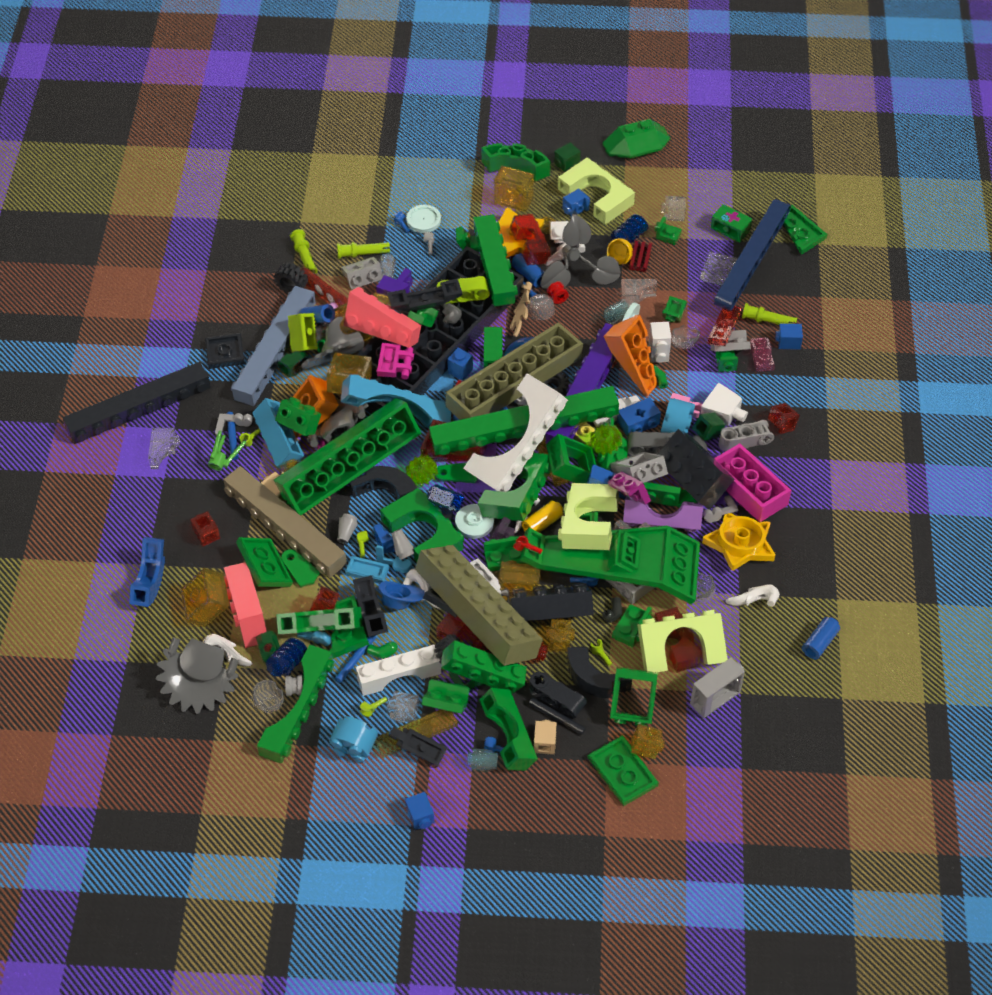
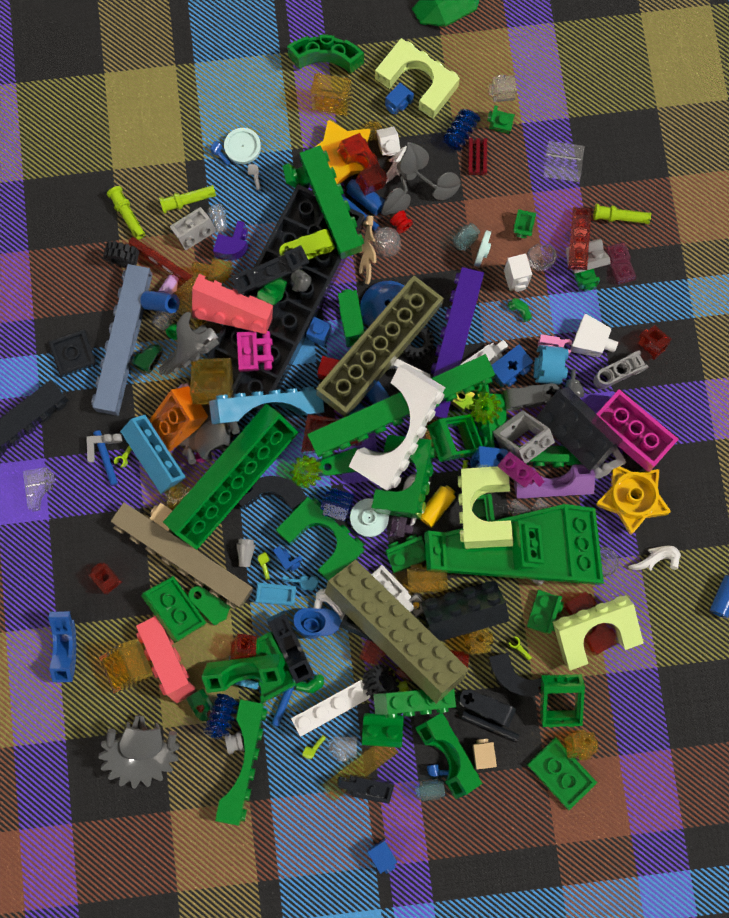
camera: 10 degrees left, 25 degrees up
(217, 458) = (98, 493): bright green plant -> none
(229, 651) = (158, 709): white piece -> none
(267, 696) = (212, 761): clear hair -> none
(298, 416) = (170, 440): green brick -> none
(302, 332) = (149, 326): lime brick -> none
(353, 738) = (304, 795): dark azure brick -> none
(401, 544) = (306, 568): light grey cone -> none
(522, 542) = (429, 554): red hand -> none
(567, 157) = (378, 37): dark green brick -> none
(616, 611) = (525, 600): pearl dark grey arm -> none
(620, 250) = (456, 157): yellow hair -> none
(630, 349) = (493, 296): orange wedge -> none
(637, 289) = (479, 205): clear arch -> none
(709, 426) = (583, 367): dark green brick -> none
(717, 687) = (639, 675): light grey window -> none
(731, 223) = (565, 98): green brick -> none
(752, 255) = (595, 141): dark blue beam -> none
(789, 336) = (646, 237): blue brick -> none
(803, 231) = (638, 93): green wing -> none

